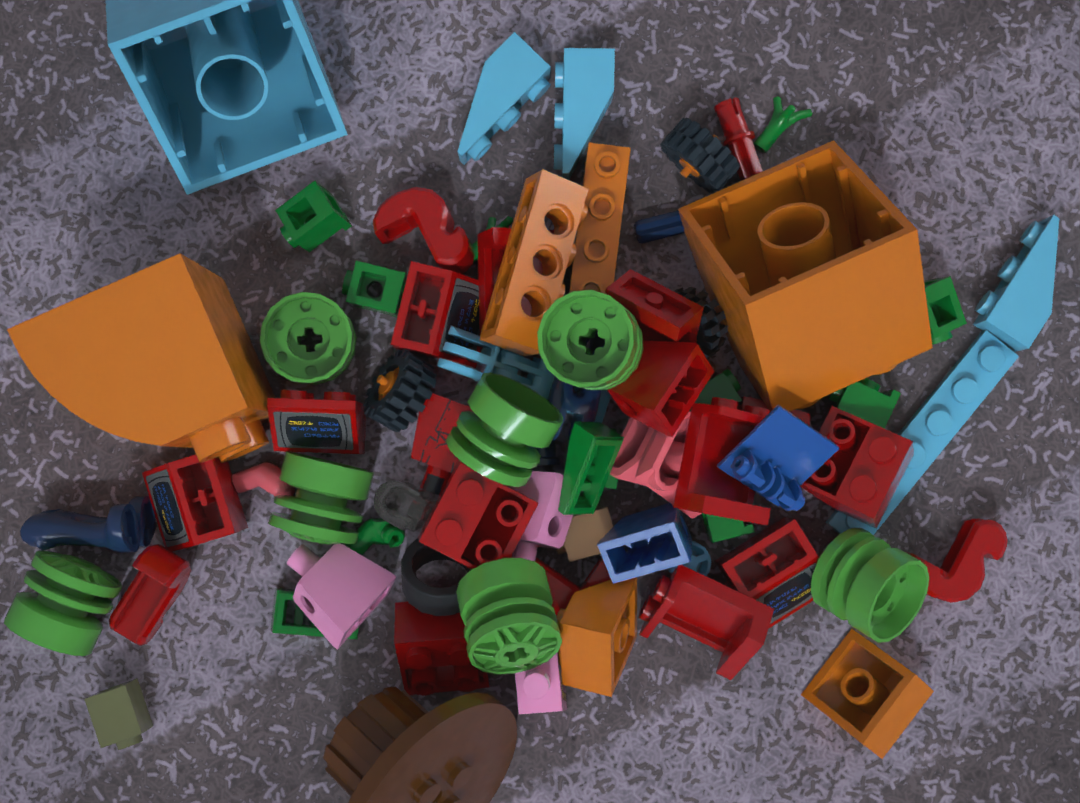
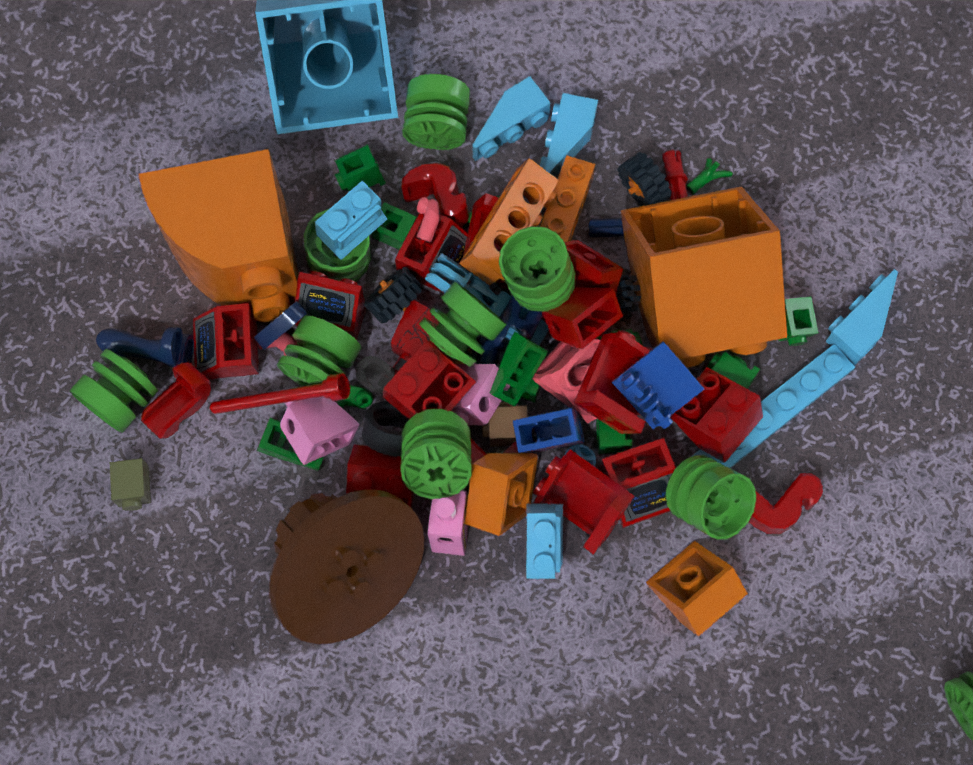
camera: 15 degrees right, 15 degrees down
(260, 469) = (280, 325): none -> dark blue beam
(320, 313) = (350, 220): none -> medium azure window
(353, 550) = (334, 387): none -> red piece
(397, 112) = (436, 112): none -> bright green wheel
(427, 281) = (430, 209): none -> coral arm
(666, 681) = (544, 540): none -> medium azure window

